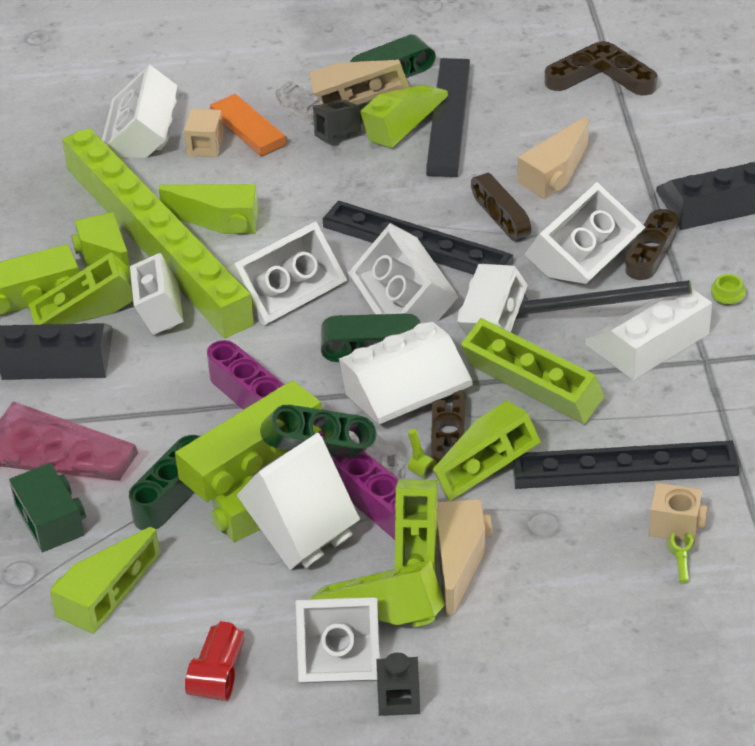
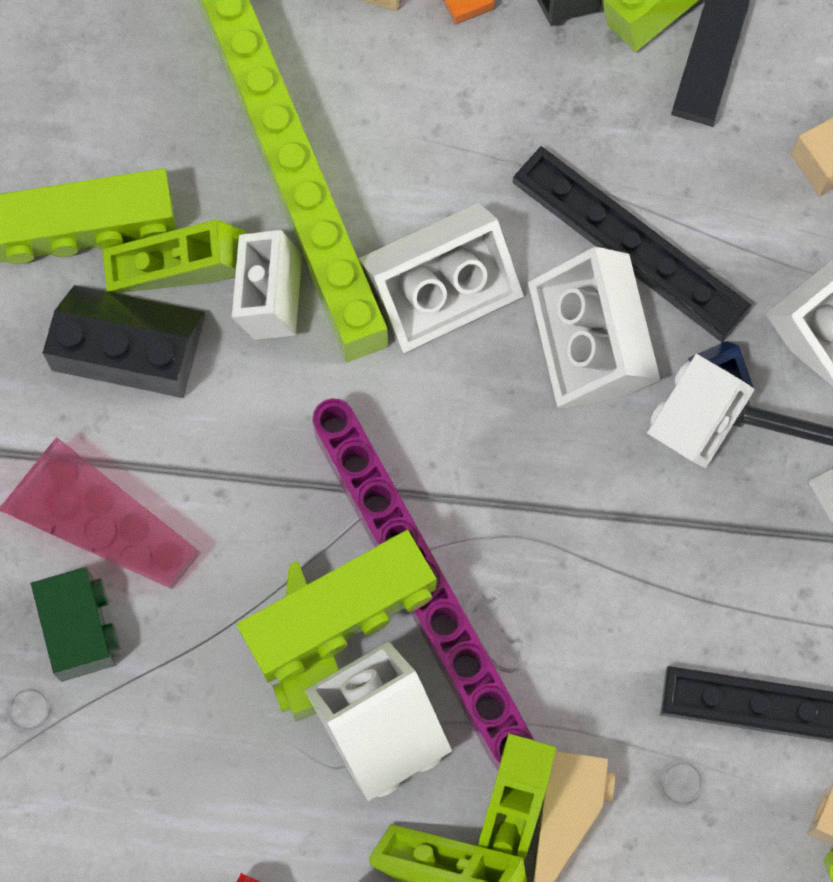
camera: 10 degrees right, 30 degrees up
(99, 237) = (213, 163): lime slope -> none
(101, 581) = (117, 768): lime slope -> none
(160, 490) = (207, 626): dark green beam -> none
(214, 206) = (380, 127): lime slope -> none
(333, 425) = (438, 646): dark green beam -> none
(349, 332) = (532, 420): dark green beam -> none
(404, 372) = (561, 506): white slope -> none
(419, 461) = (551, 651): lime hand -> none
(442, 418) = (578, 629): dark brown beam -> none
(486, 448) = (638, 658): lime slope -> none
(501, 206) = (756, 211): dark brown beam -> none
(533, 370) = (724, 542): lime brick -> none

